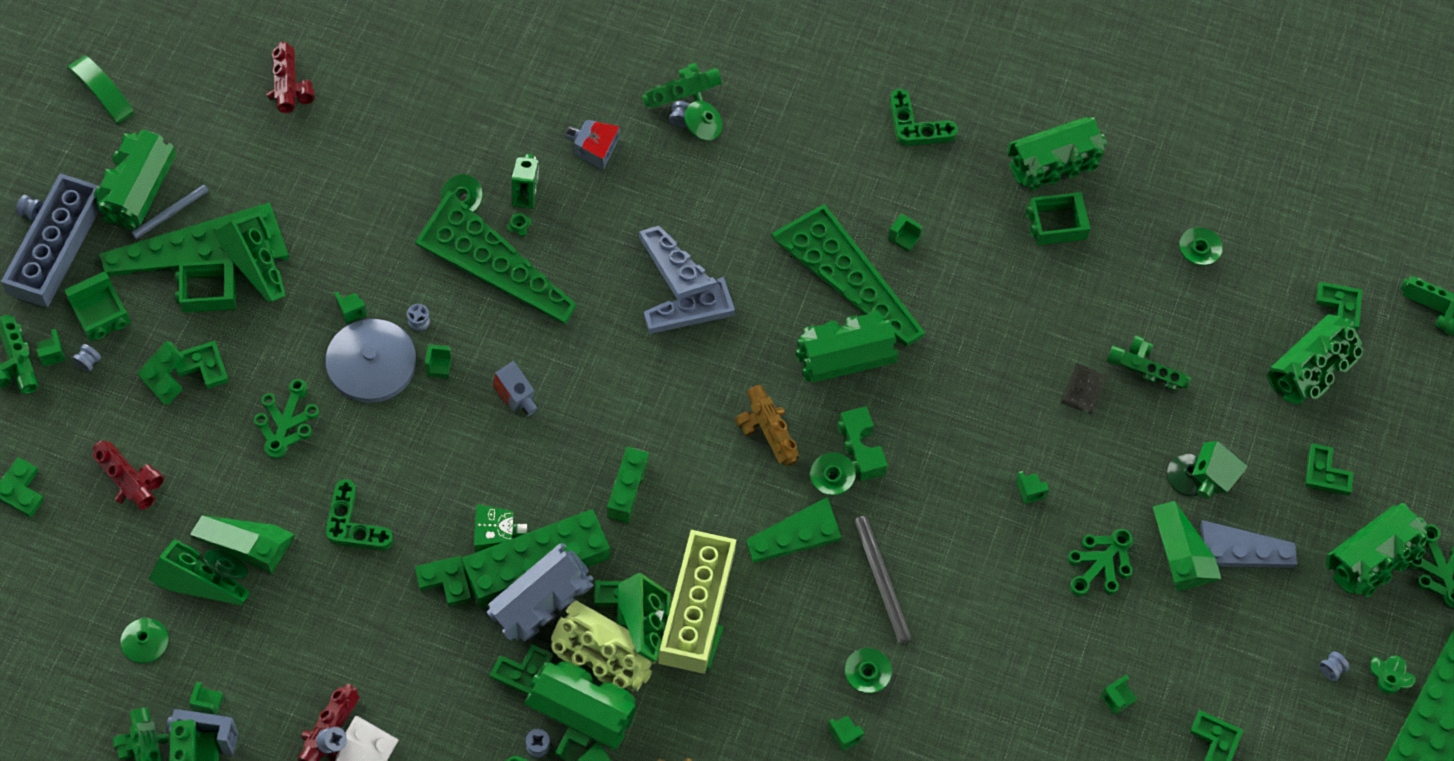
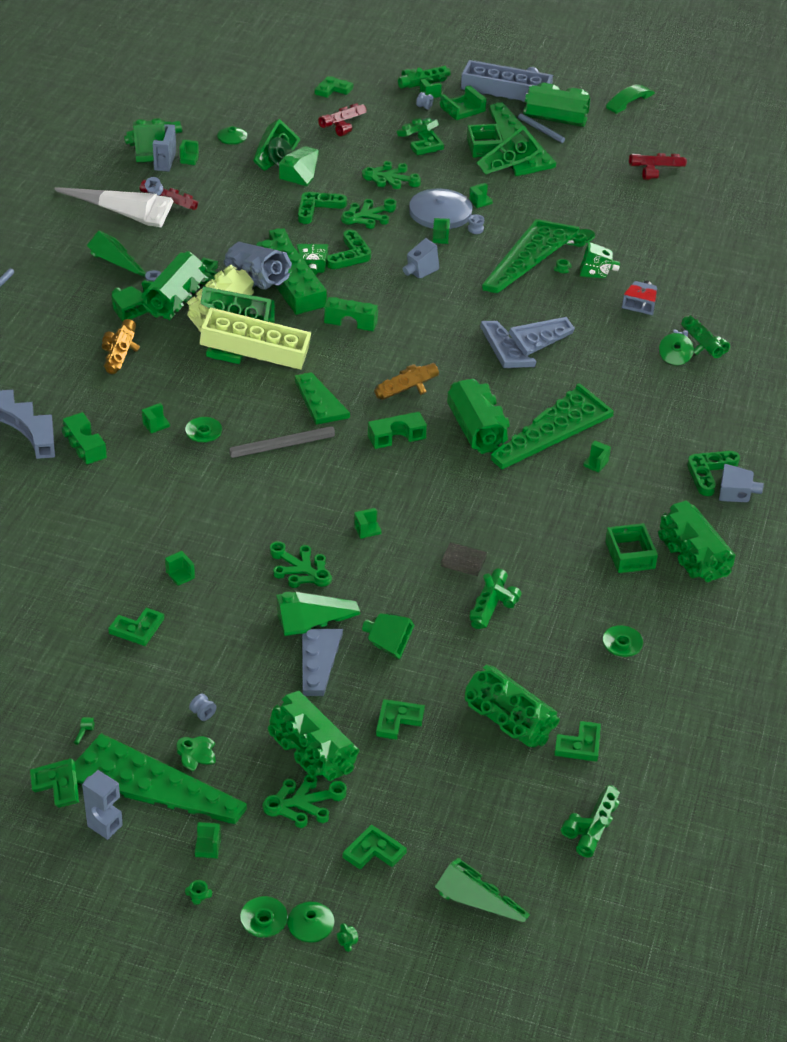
camera: 90 degrees right, 20 degrees down
(378, 456) = (349, 217): none -> green plant
(477, 474) = (358, 254): none -> green beam
(831, 464) = (368, 412): green dish -> none
(948, 100) = (738, 484): none -> sand blue torso

